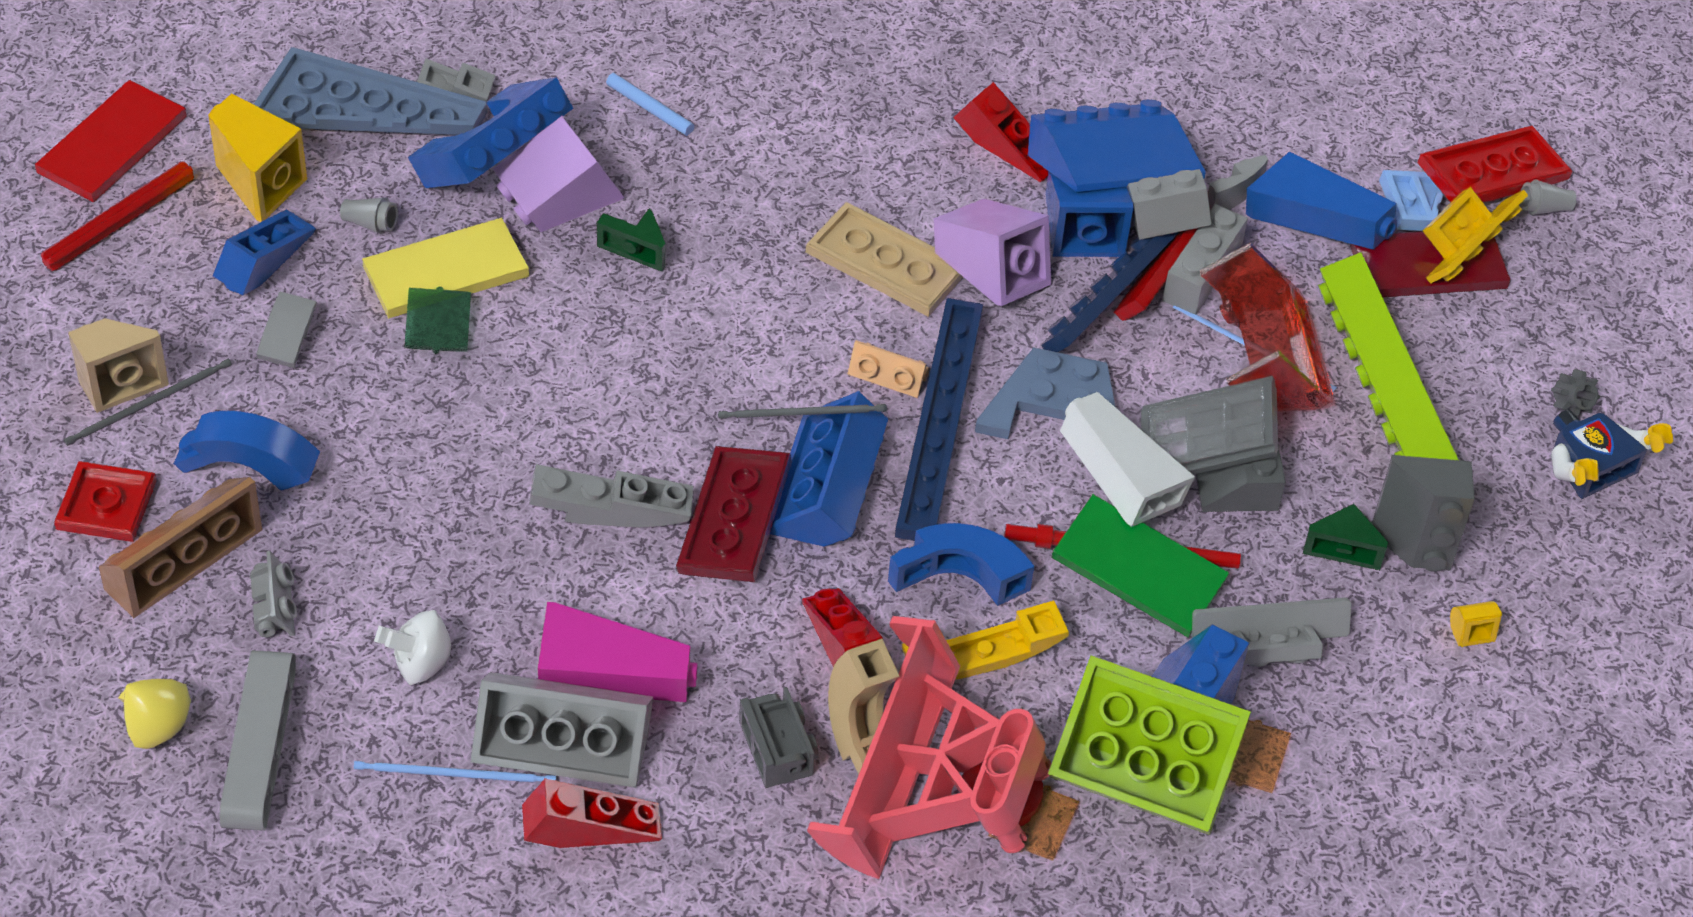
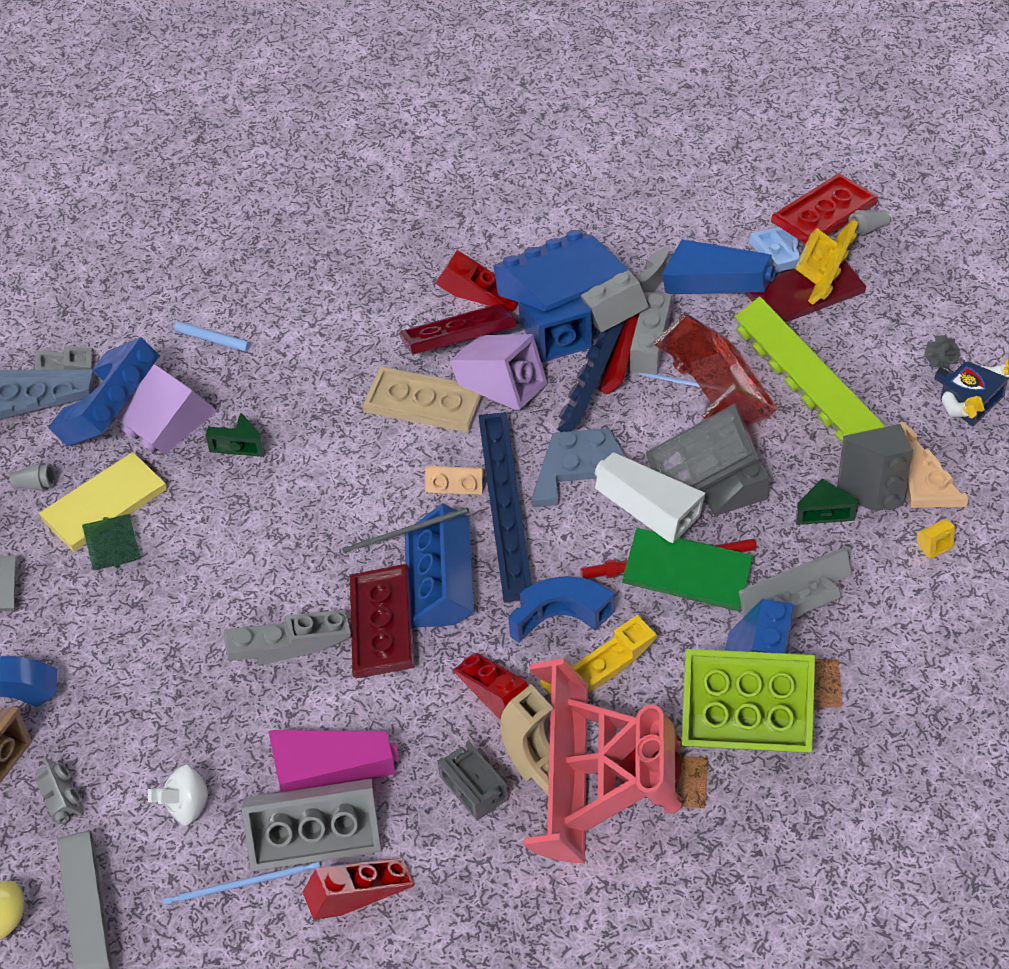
camera: 10 degrees left, 0 degrees up
(959, 182) = (457, 328): none -> dark red tile
(1491, 542) = (927, 481): none -> light nougat wing

